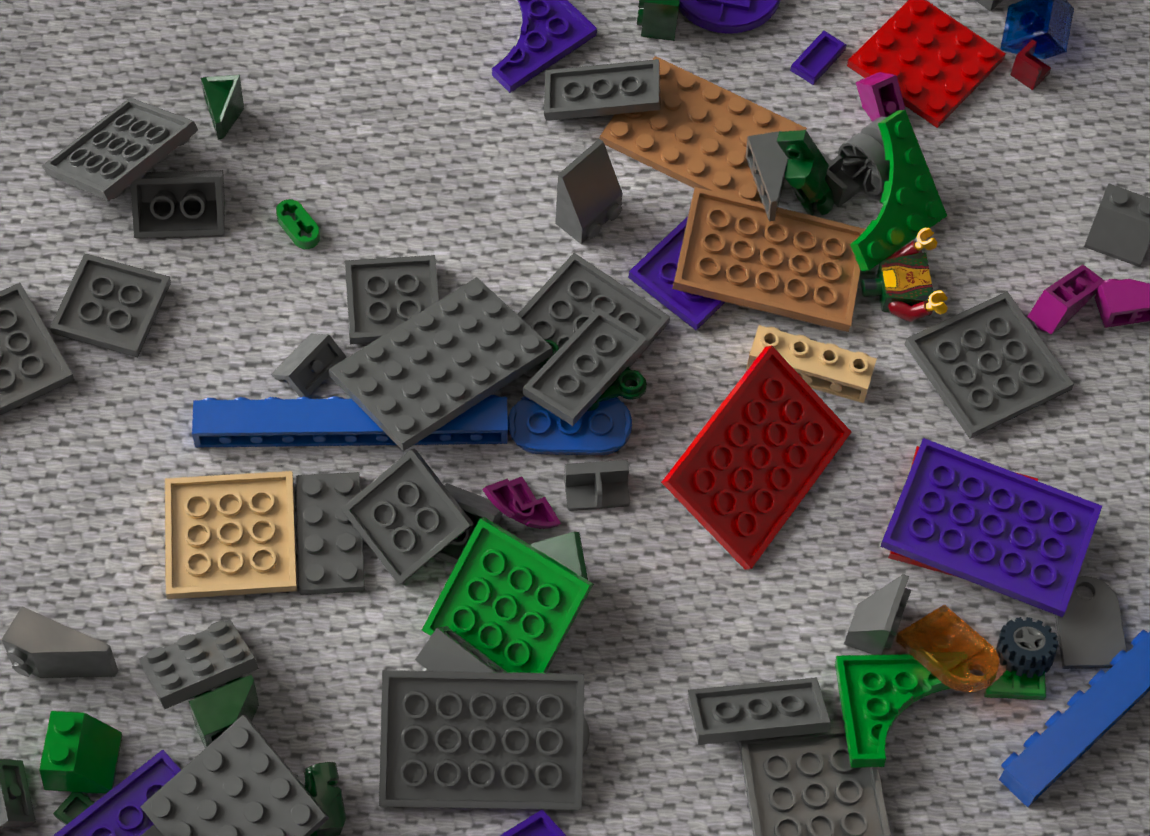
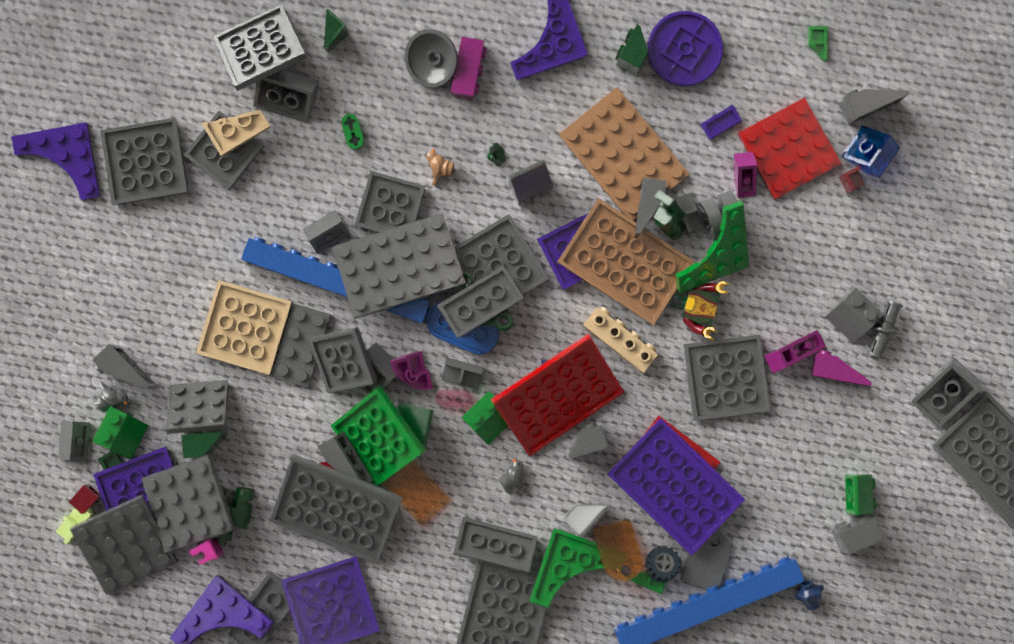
camera: 25 degrees right, 25 degrees up
(39, 706) = (110, 398): none -> dark grey animal
(119, 270) = (235, 131): none -> tan wing
(360, 90) = (421, 58): none -> dark grey dish
(436, 94) = (468, 68): none -> magenta brick
(445, 225) = (439, 166): none -> medium nougat animal
(521, 187) = (496, 154): none -> dark green plant
(598, 525) = (454, 393): none -> clear pink beam
(602, 90) = (571, 104): dark grey plate -> none
(611, 683) = (419, 492): none -> clear orange piece
(662, 533) = (485, 419): none -> green slope
(740, 606) = (513, 477): none -> dark grey animal
(835, 507) = (588, 441): none -> dark grey slope

